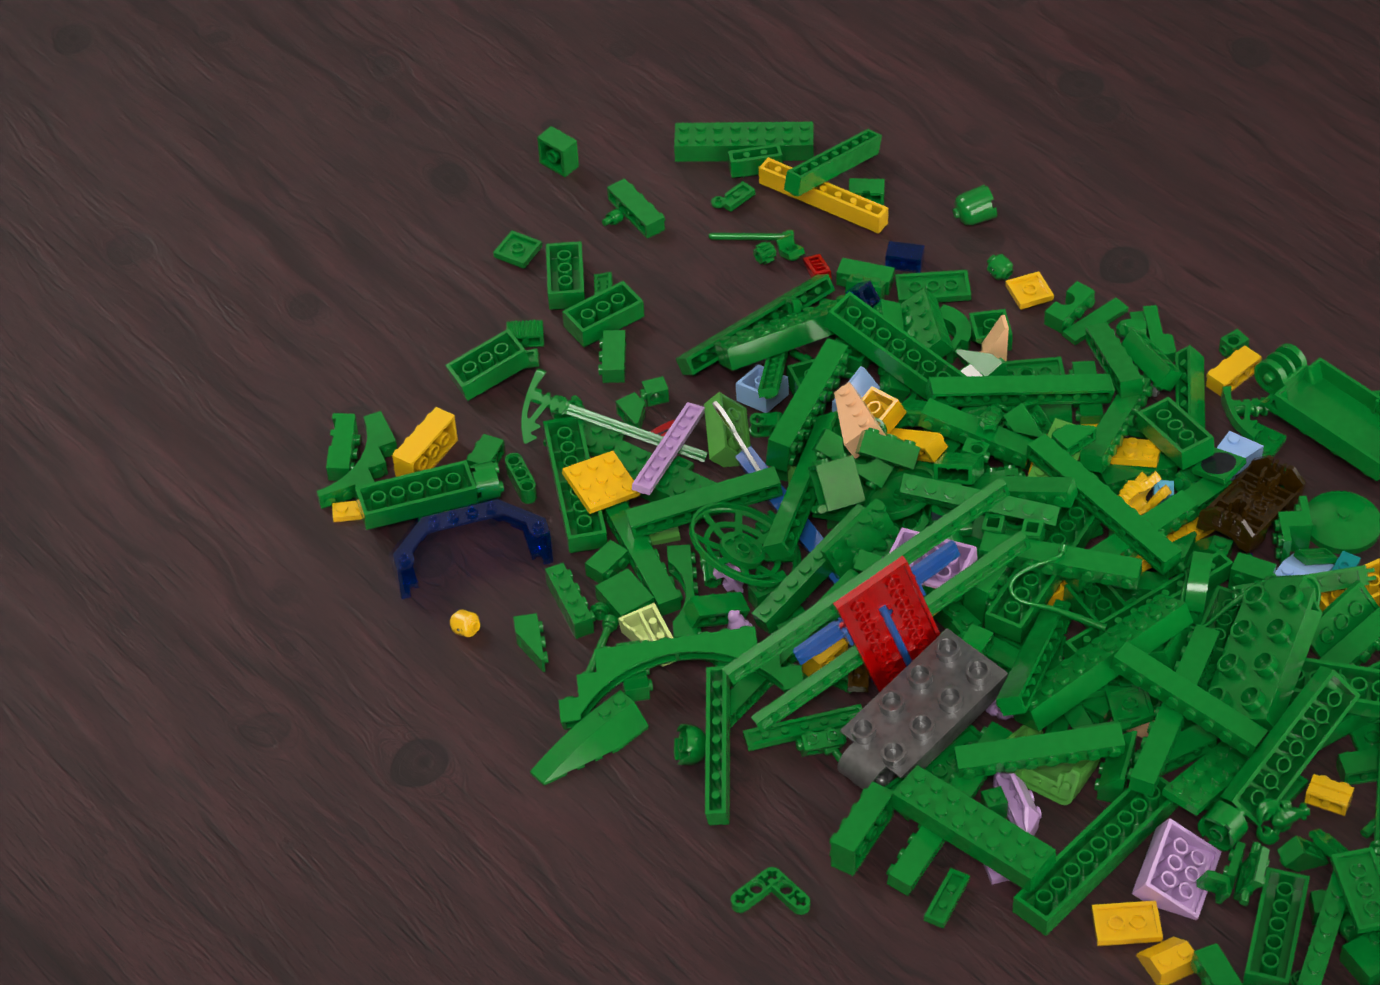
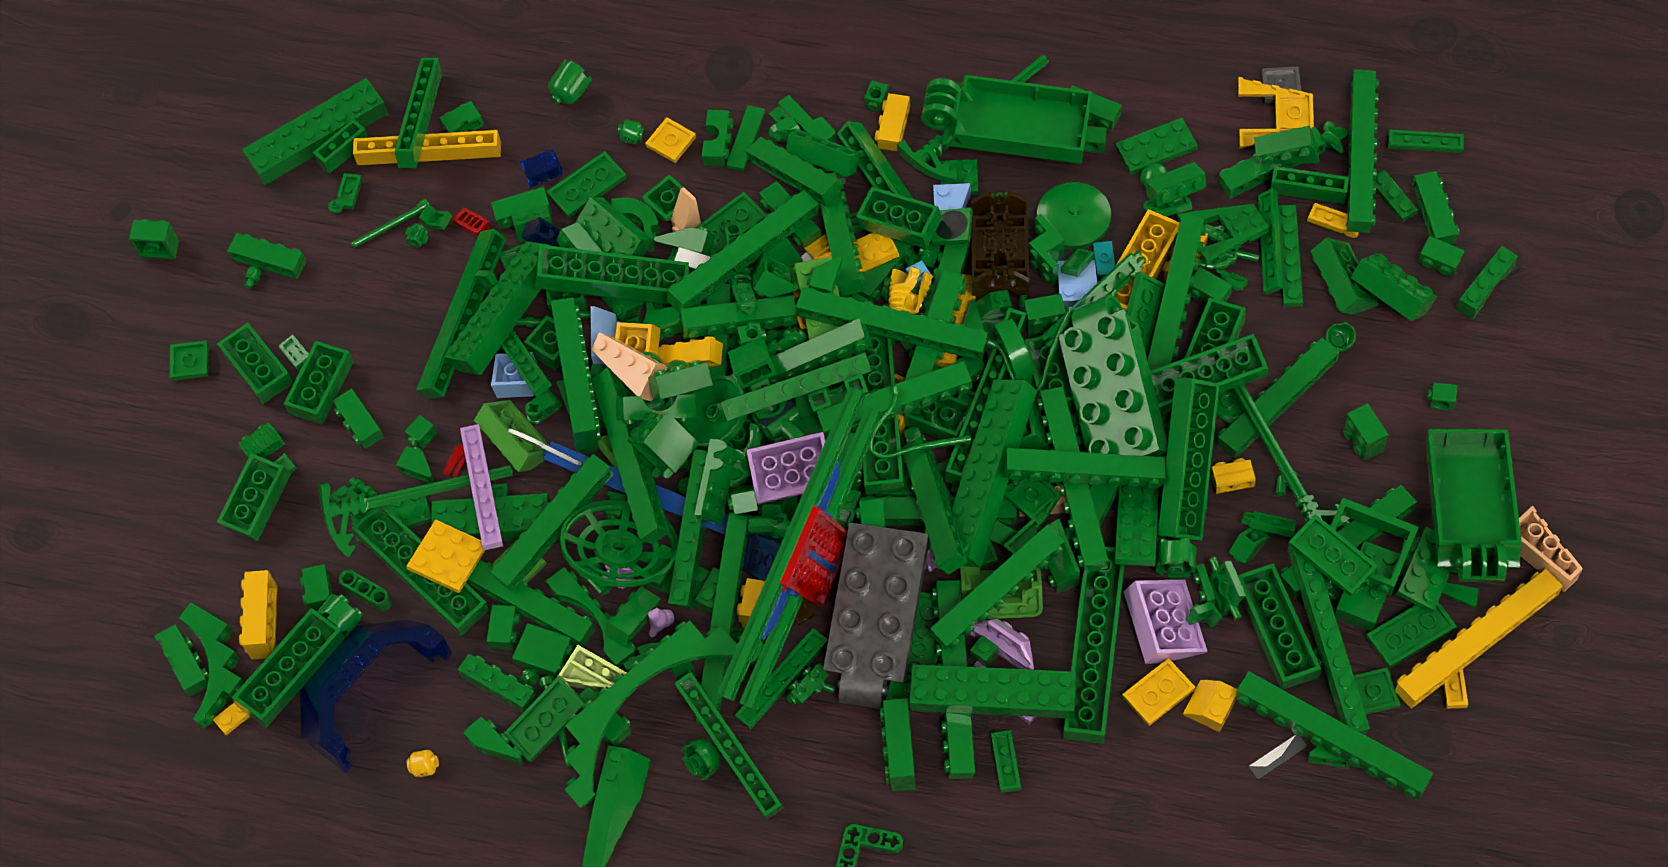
camera: 30 degrees left, 15 degrees up
(578, 645) = (544, 718): none -> green plate
(1280, 817) = (1212, 522): green animal -> none

